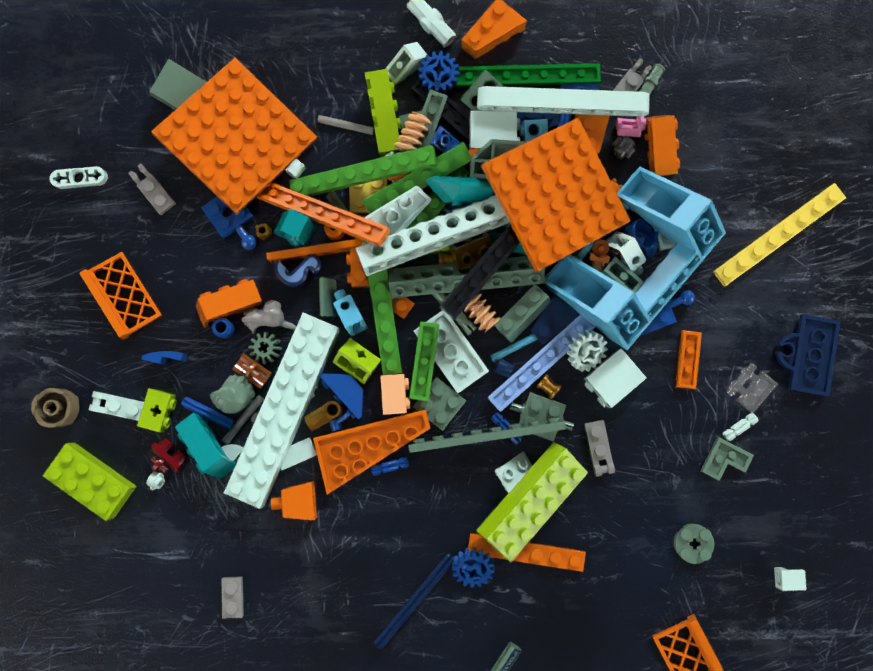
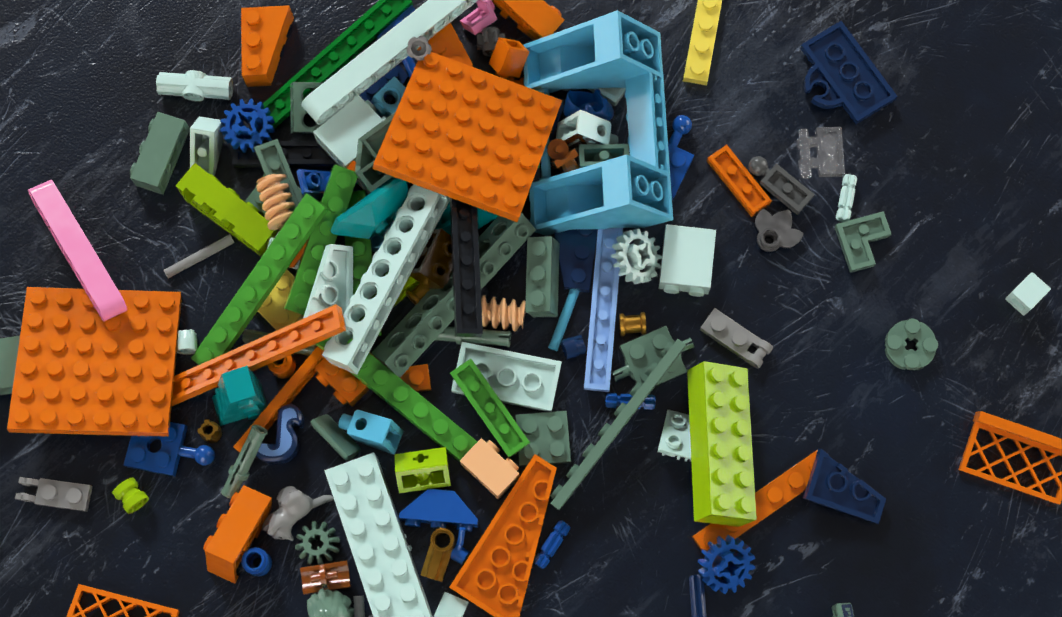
camera: 40 degrees left, 10 degrees down
(190, 227) = (130, 495): none -> lime wheel
(258, 269) = (239, 471): none -> sand green pin
(280, 61) = (77, 250): none -> bright pink beam
(376, 43) = (159, 153): none -> sand green brick
(575, 587) = (839, 489): none -> dark blue wing
(580, 115) = (413, 52): none -> light grey plate
(624, 167) = (508, 58): none -> orange brick
(683, 407) = (778, 228): none -> flat silver plate
(710, 385) = (781, 184): none -> dark grey plate

